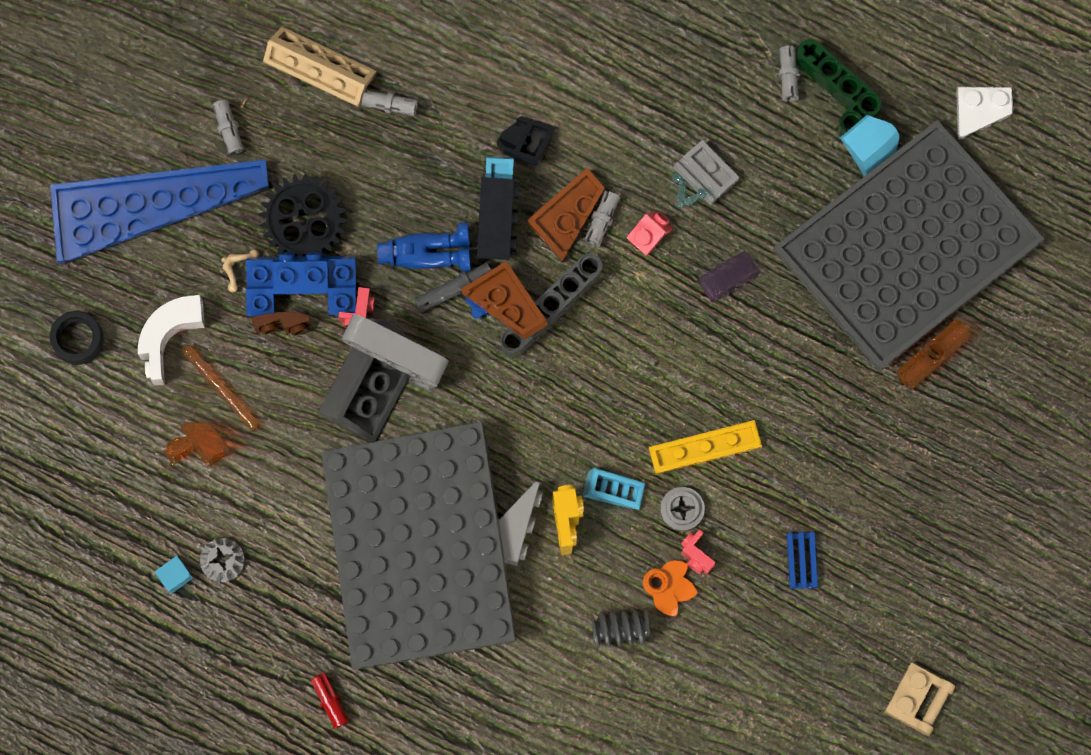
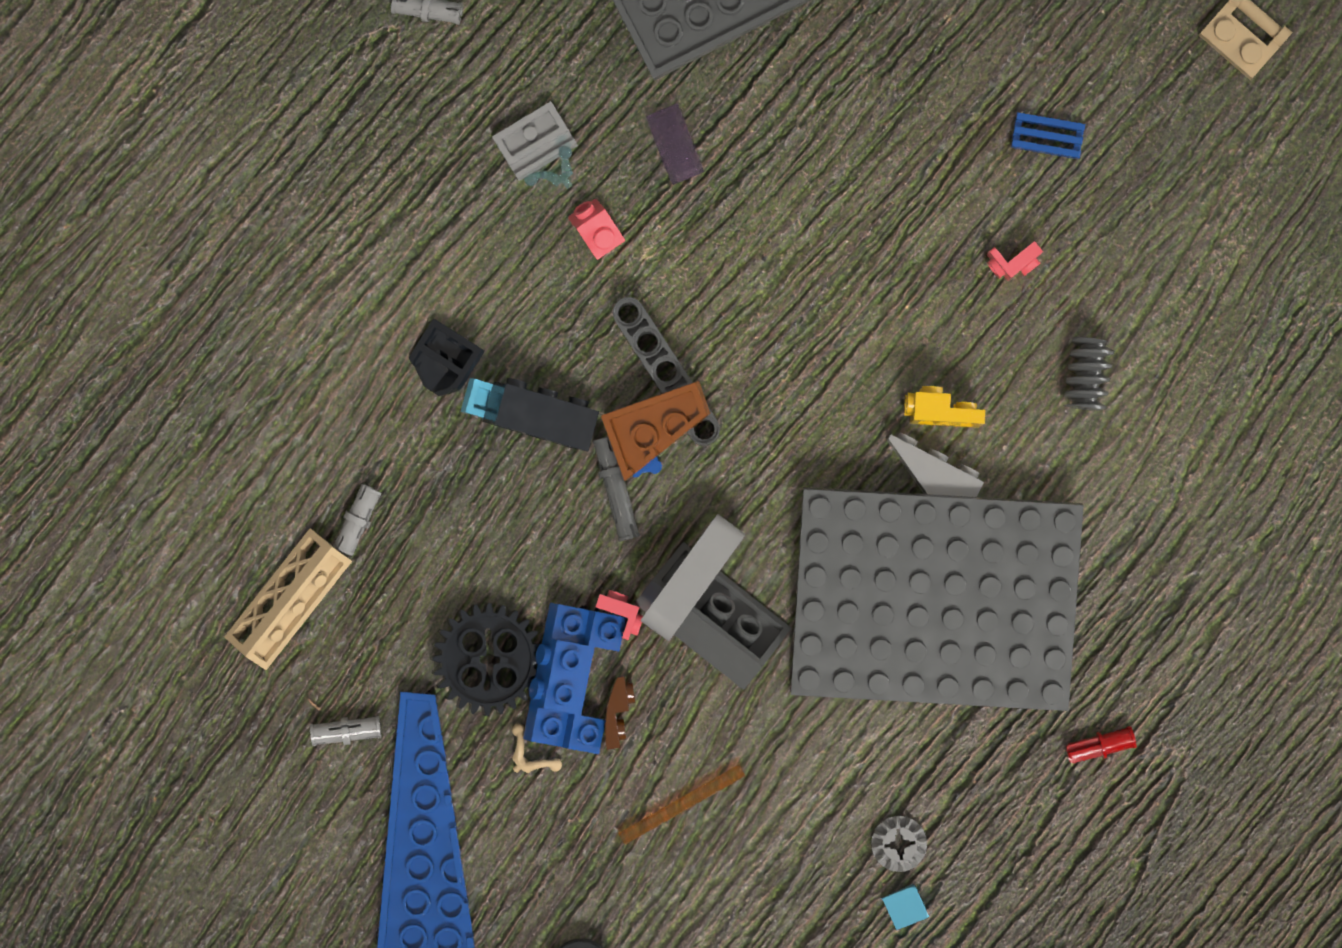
camera: 75 degrees left, 10 degrees up
(165, 322) = (584, 856): white arch -> none
(199, 438) = (745, 838): clear orange brick -> none
(412, 250) = (556, 530): blue piece -> none
(566, 213) = (548, 327): dark orange wing -> none
(602, 218) = (566, 284): light grey pin -> none
(611, 498) = (902, 371): medium azure slope -> none
(673, 588) = (1050, 301): orange plate -> none
(690, 499) = (966, 255): light grey gear -> none
(705, 447) = (882, 221): yellow tile -> none

